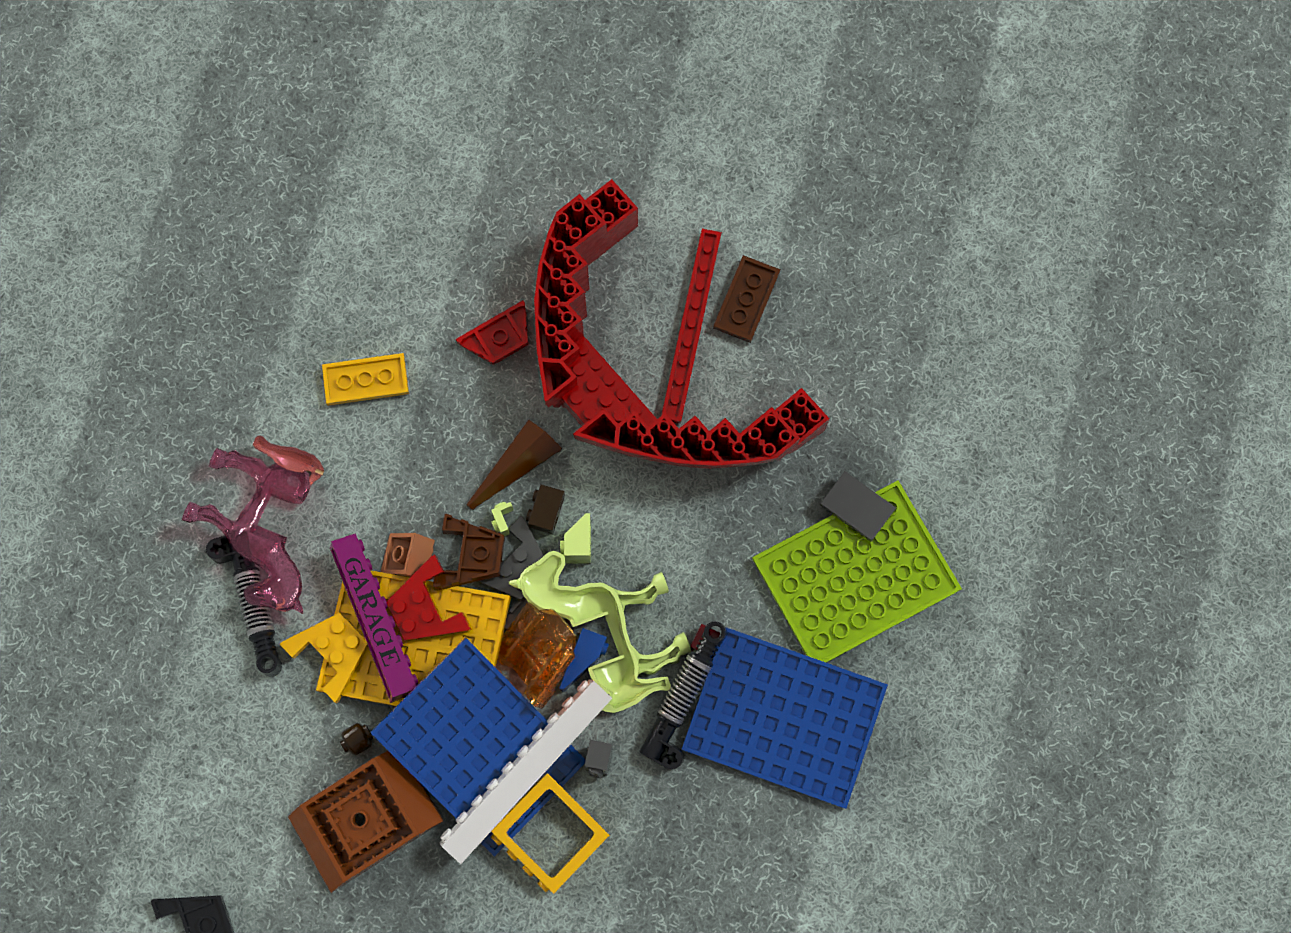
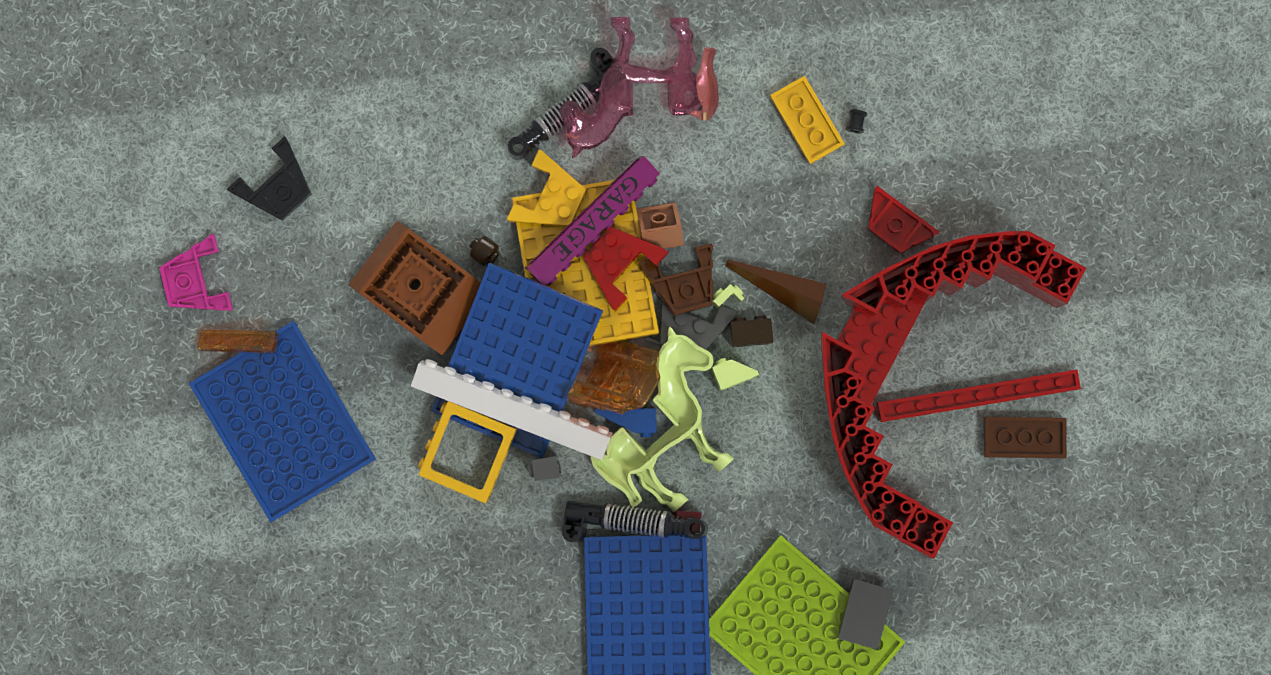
camera: 70 degrees right, 10 degrees up
(386, 334) = (856, 121): none -> black bush

